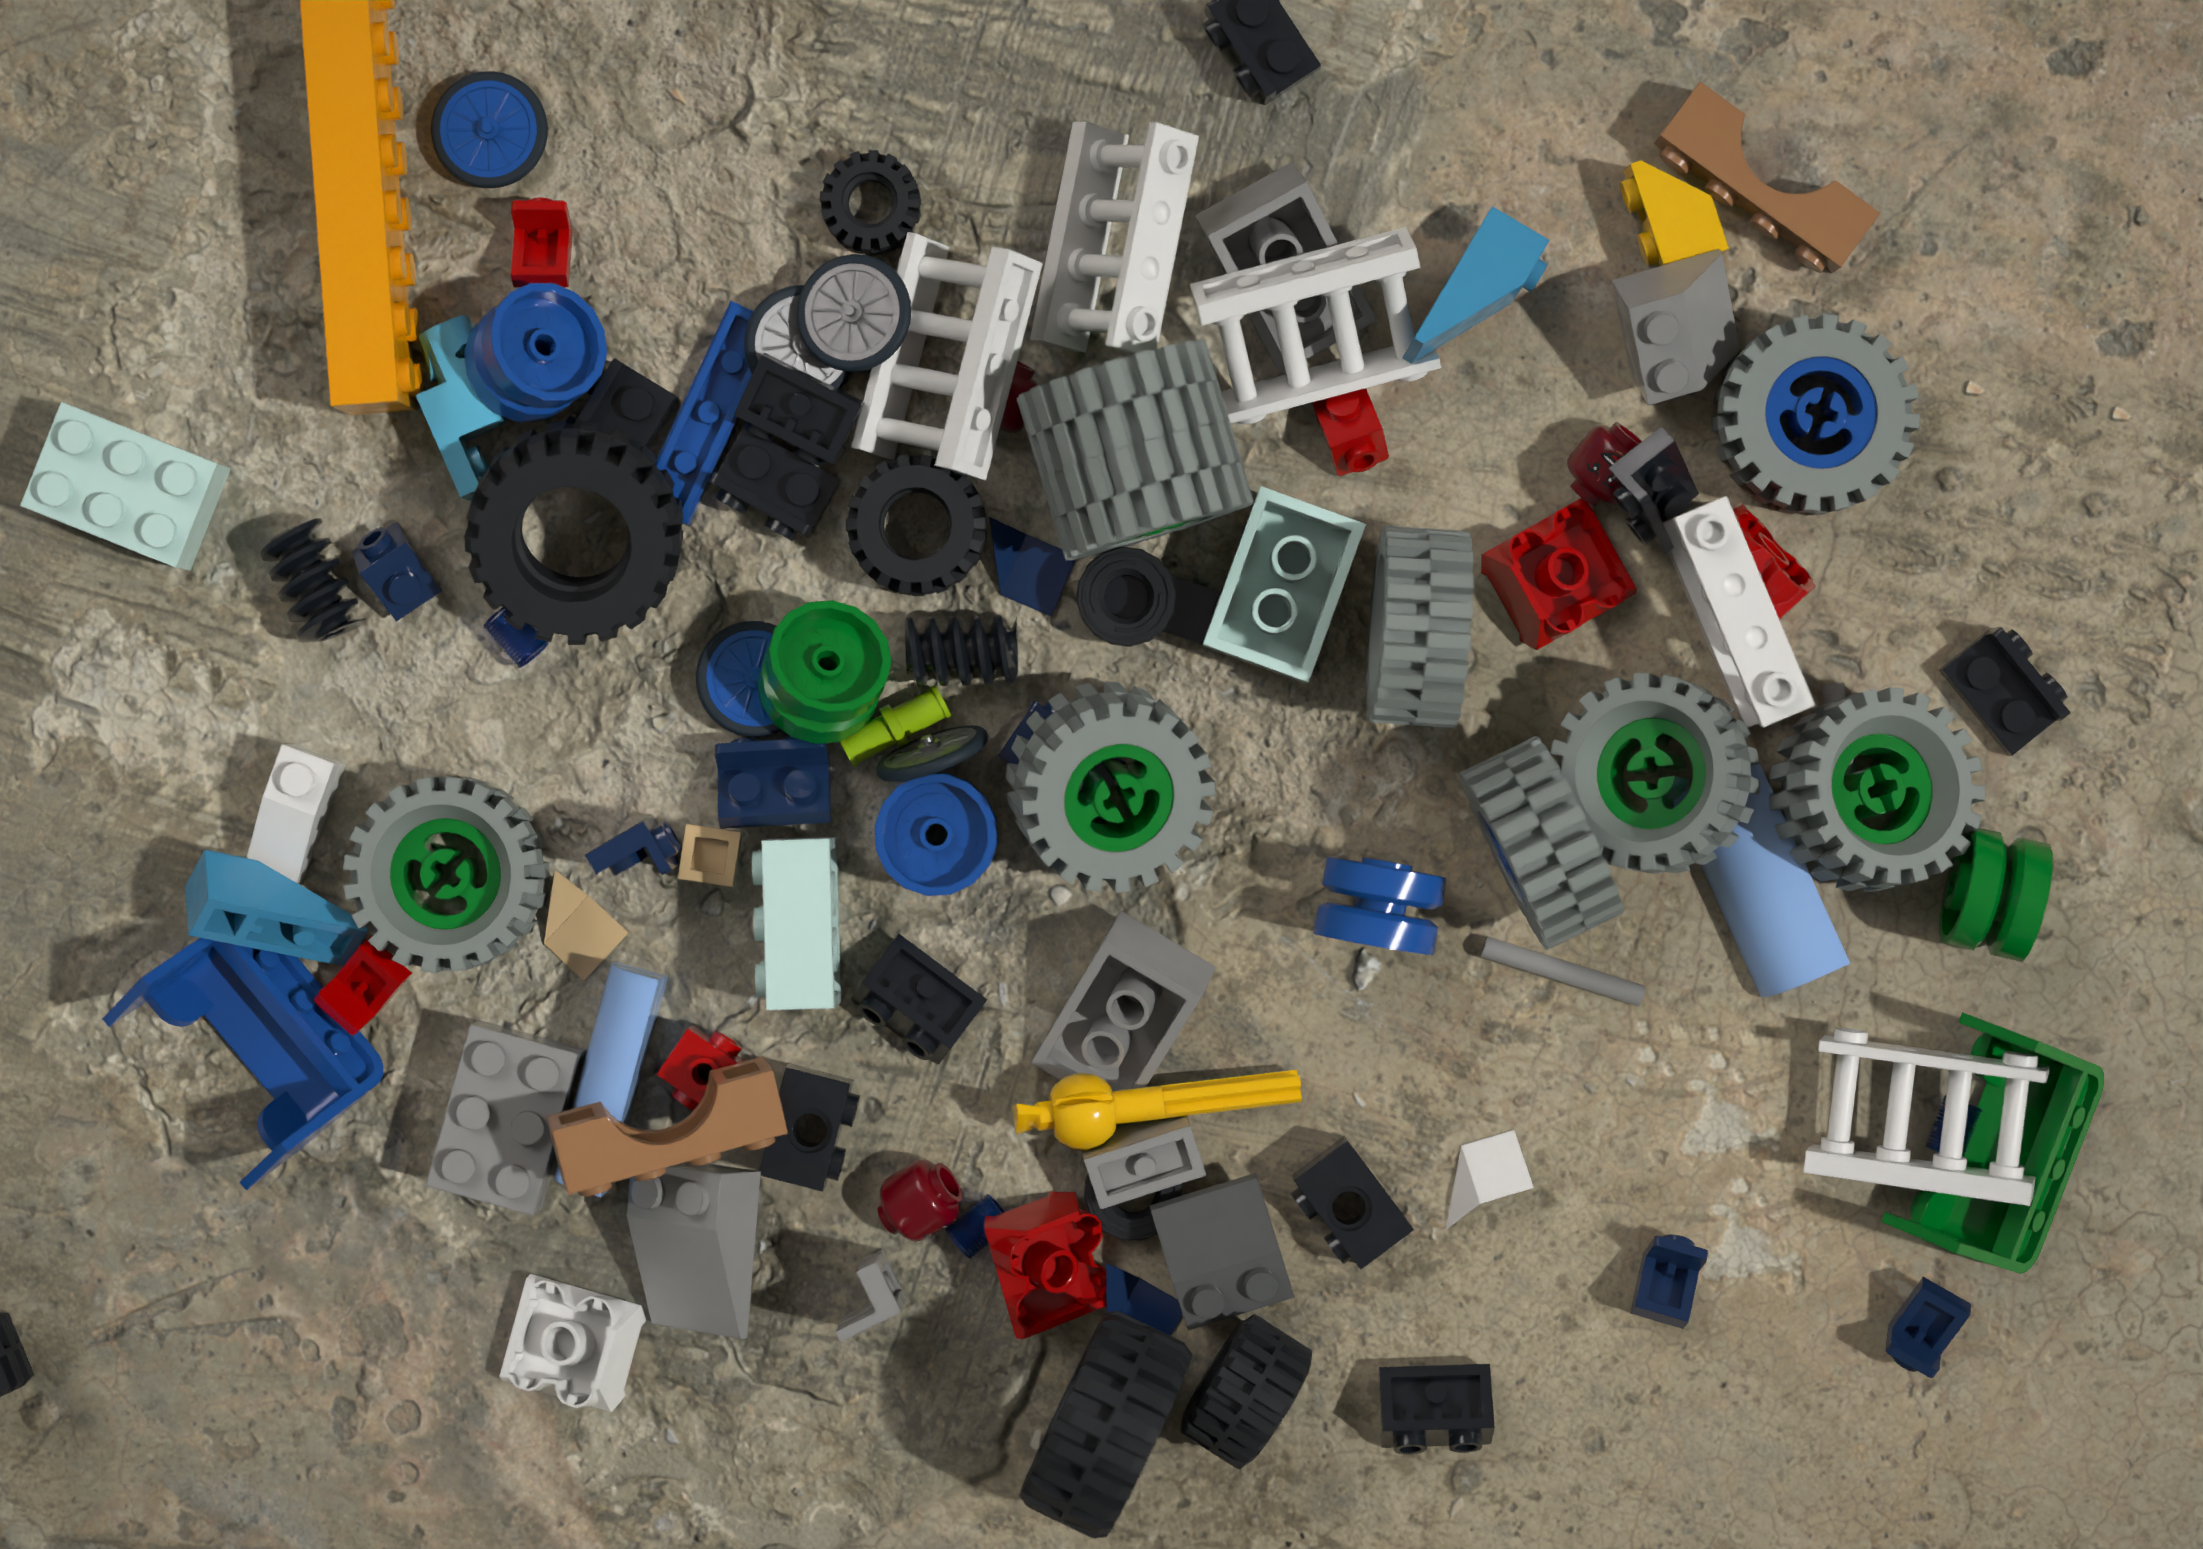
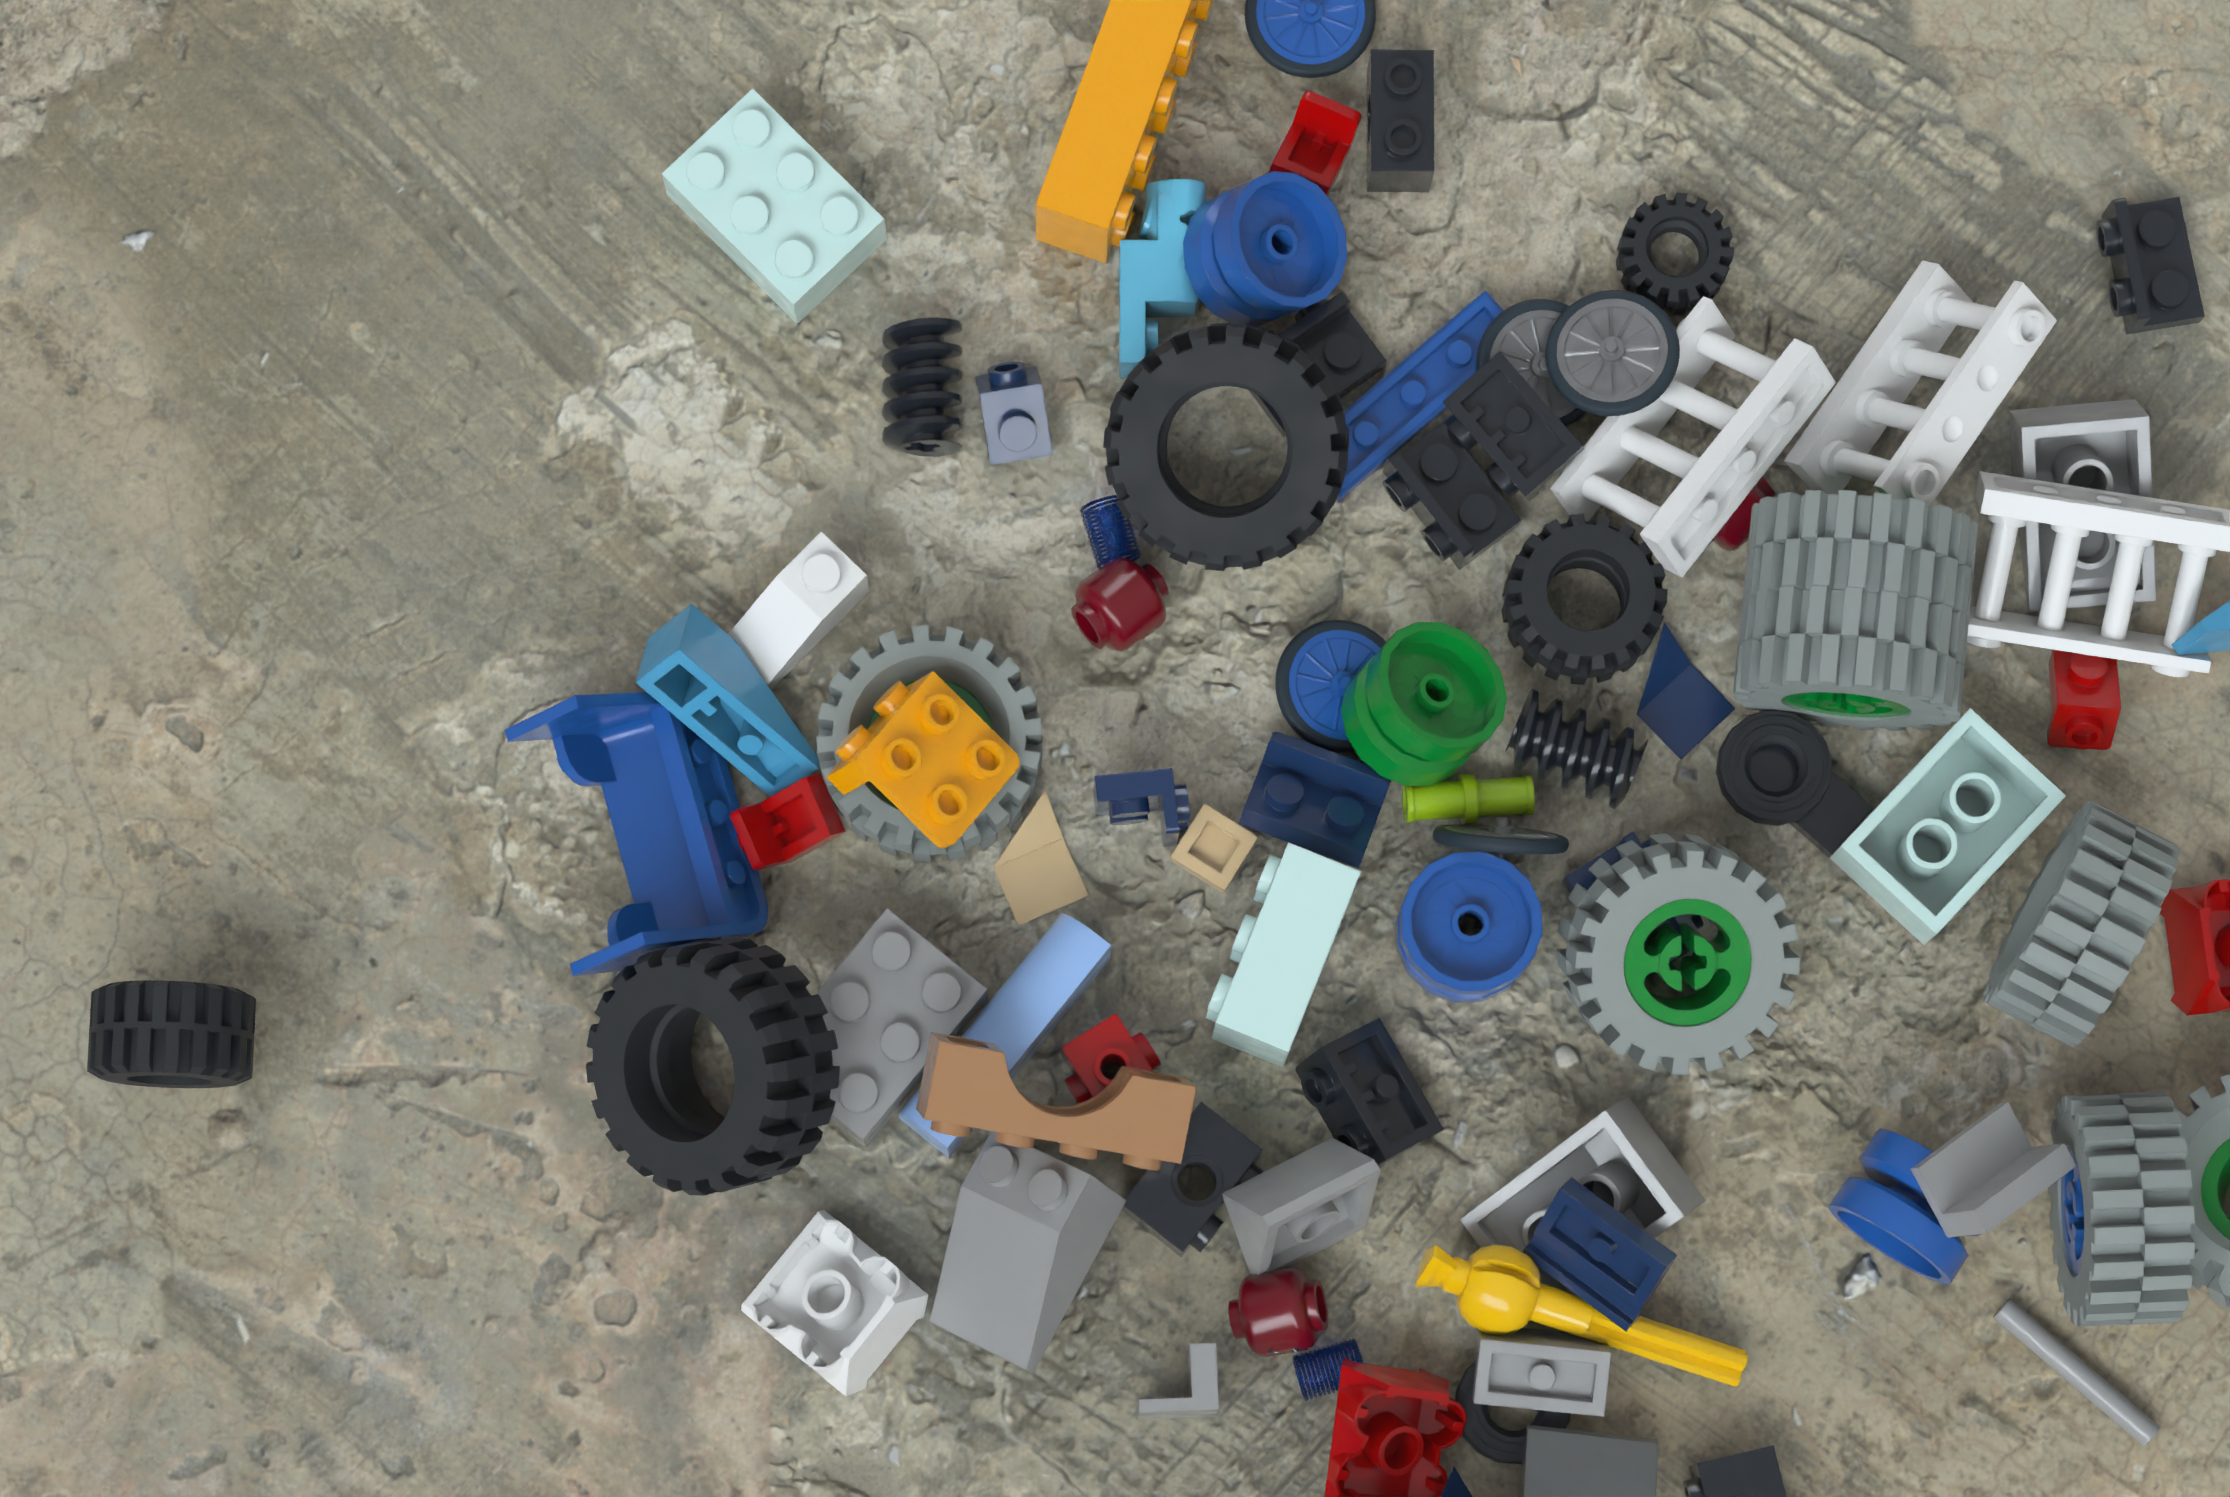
camera: 20 degrees right, 10 degrees down
(420, 1180) = (649, 1080): none -> black tyre
(446, 899) = (927, 758): none -> light orange bracket
(549, 691) = (1120, 604): none -> dark red head
(599, 190) = (1400, 120): none -> black brick
(899, 1112) = (1302, 1205): none -> light grey slope
(1147, 1053) = (1599, 1254): none -> dark blue plate
(1424, 866) = (1988, 1173): none -> light grey panel

